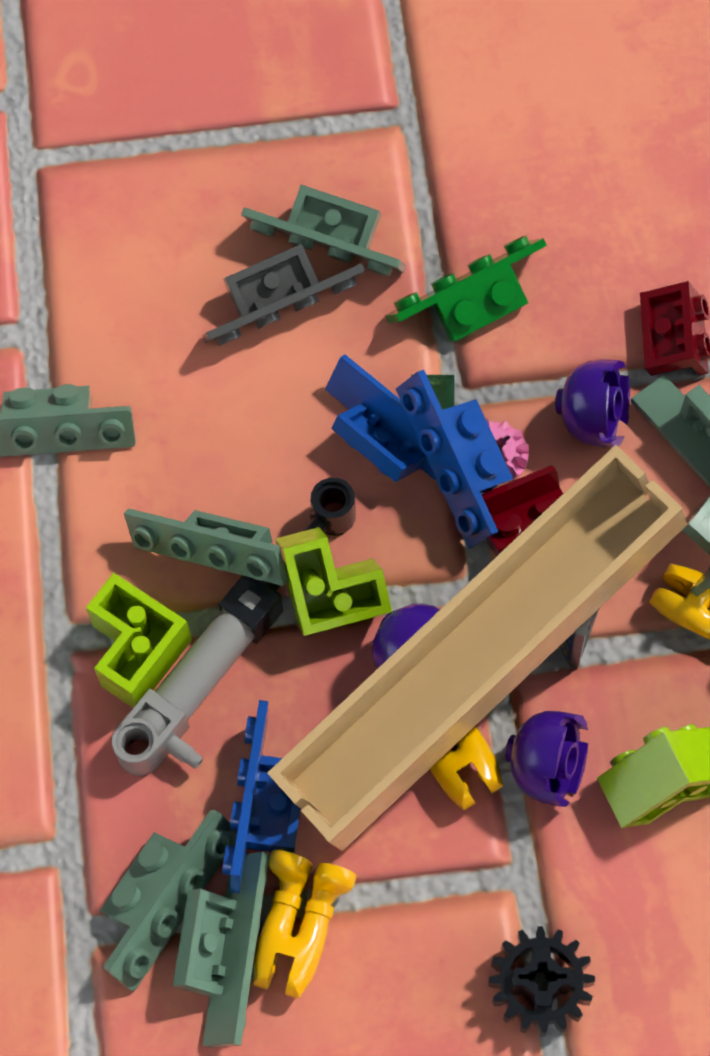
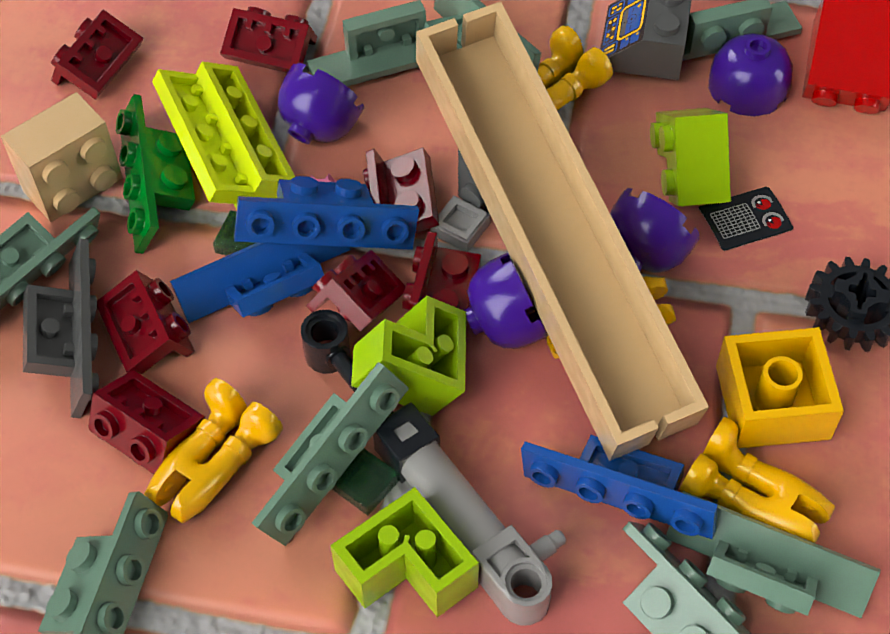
camera: 75 degrees left, 10 degrees down
(177, 439) = (186, 461): none -> yellow piece
(207, 587) = (366, 481): none -> clear green tile
(210, 390) = (141, 419): none -> dark red bracket
(305, 353) = (143, 322): none -> dark red bracket
(388, 516) = (358, 289): none -> dark red bracket
(405, 916) = (779, 387): none -> yellow brick
(428, 577) = (441, 275): none -> dark red bracket
(444, 211) = (63, 156): none -> tan brick
(530, 334) = (223, 132): none -> neon yellow brick
(594, 187) = (96, 55): none -> dark red bracket
(628, 858) = (746, 218): none -> black sticker

